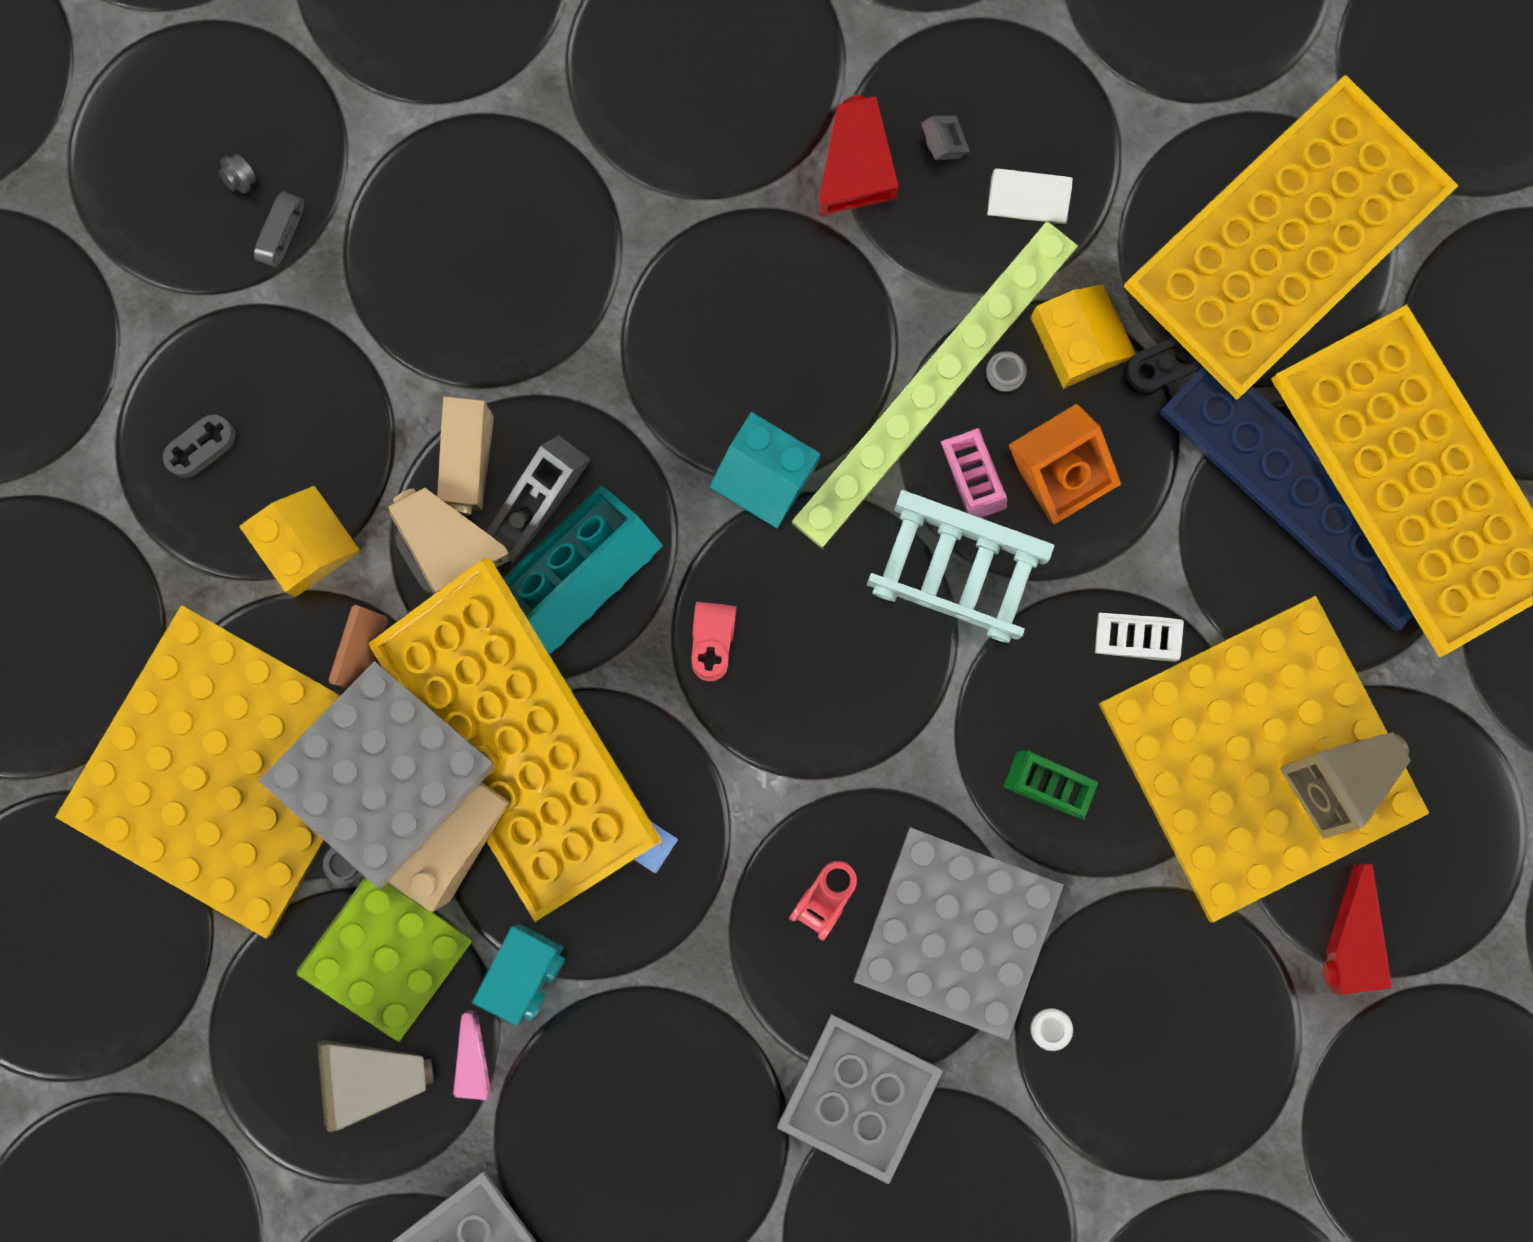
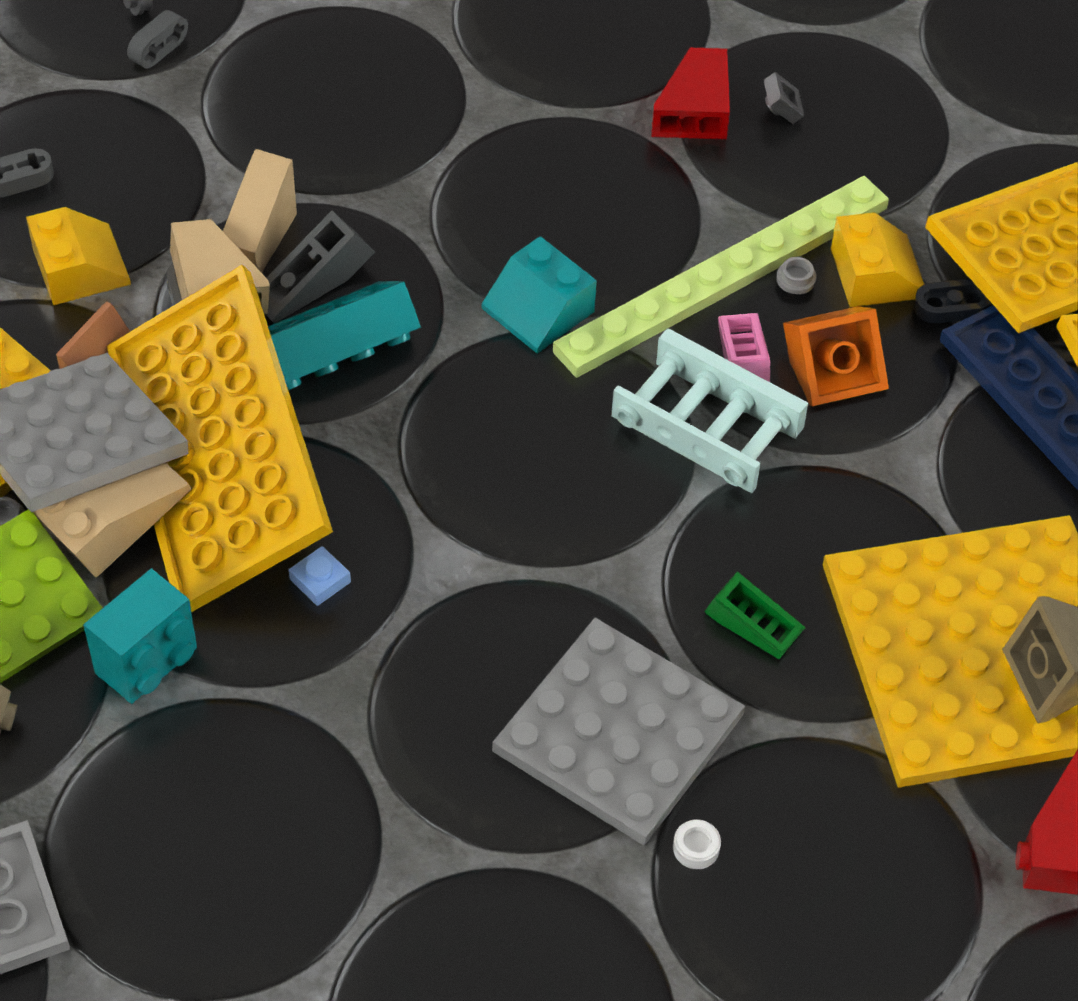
camera: 15 degrees right, 30 degrees down
(471, 1065) = (56, 720): bright pink slope -> none
(712, 633) = (443, 417): coral piece -> none
(824, 901) = (481, 661): coral piece -> none
(859, 1098) = (464, 855): light grey plate -> none
(1029, 196) = (852, 154): white slope -> none
(1174, 641) = (894, 502): white slope -> none

